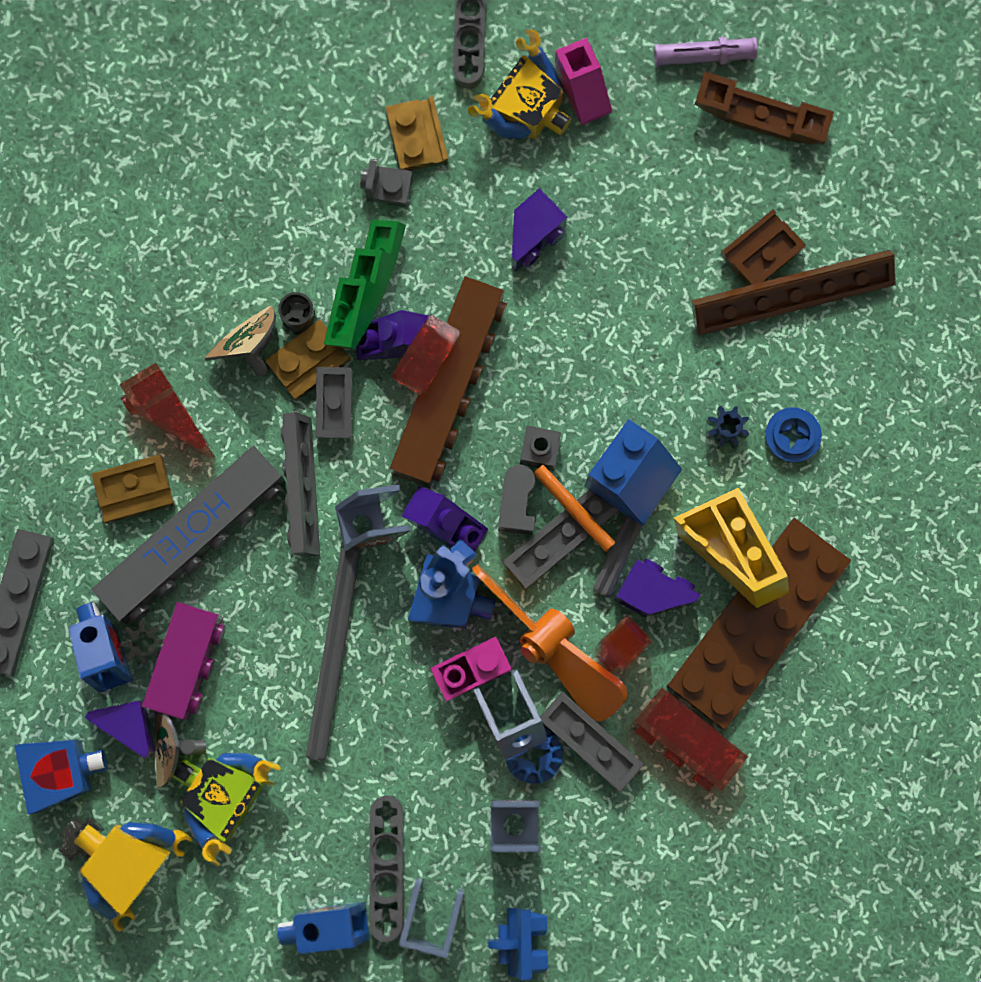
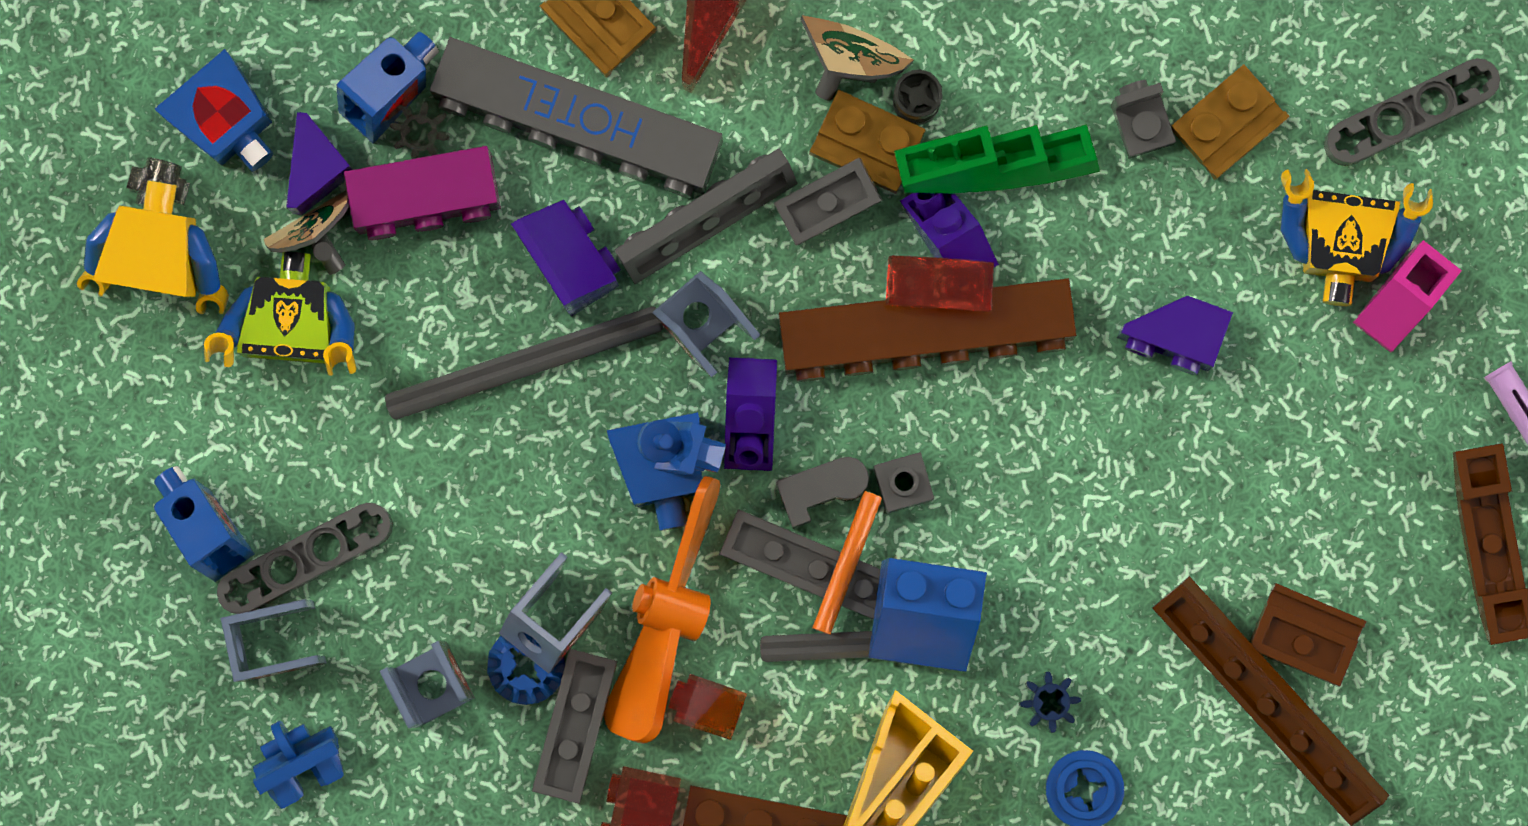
camera: 70 degrees right, 5 degrees up
(278, 588) = (567, 256): none -> dark purple slope
(471, 669) = (586, 538): dark pink slope -> none
(652, 592) = (793, 711): dark purple slope -> none

